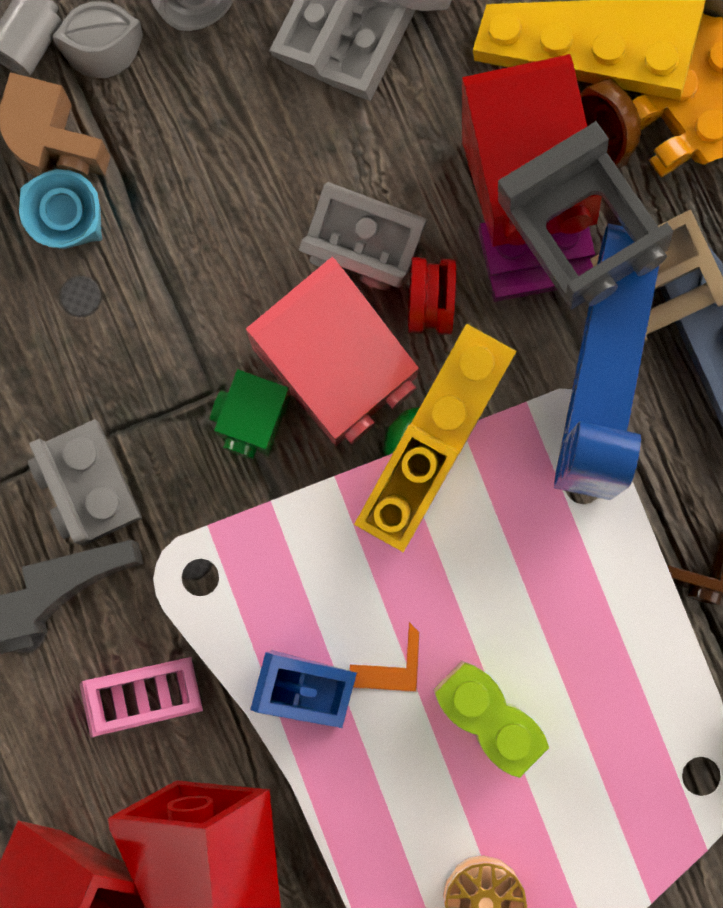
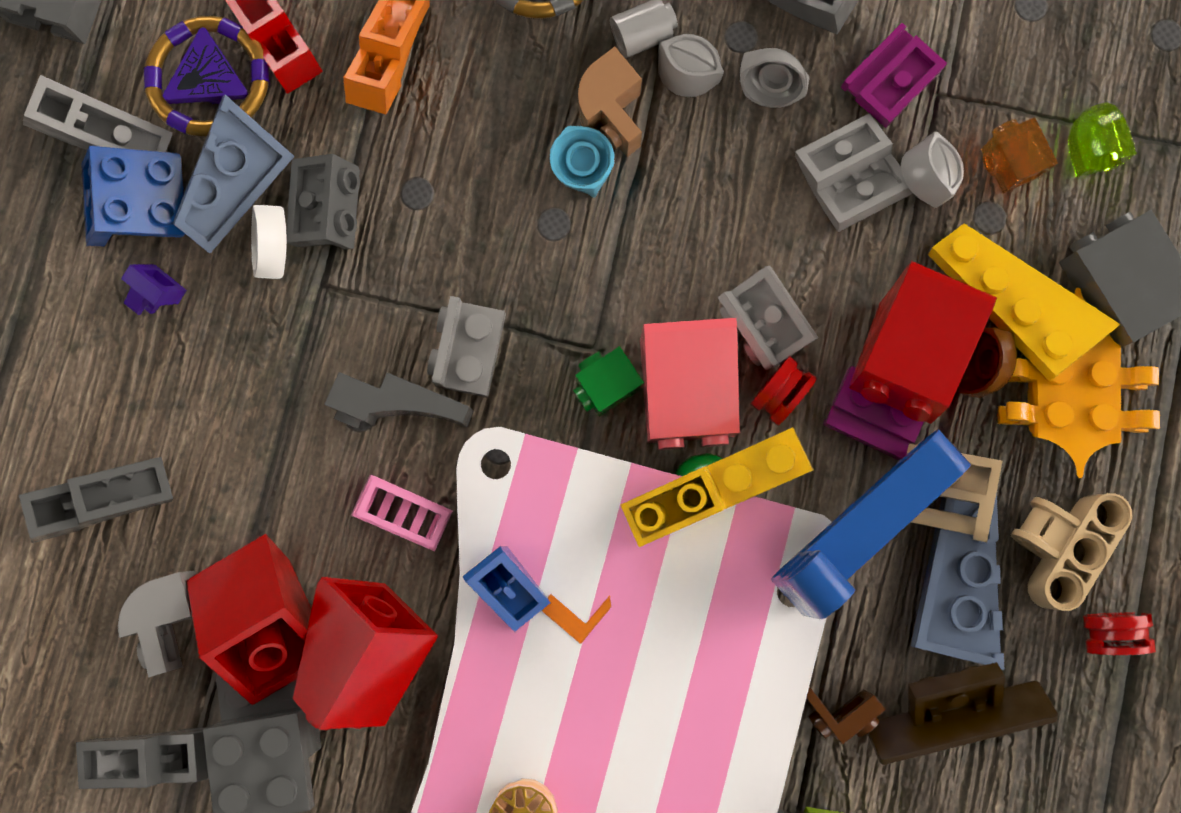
camera: 40 degrees right, 0 degrees up
(502, 730) = (617, 712): lime brick -> none
(563, 179) = (930, 378): dark grey window -> none

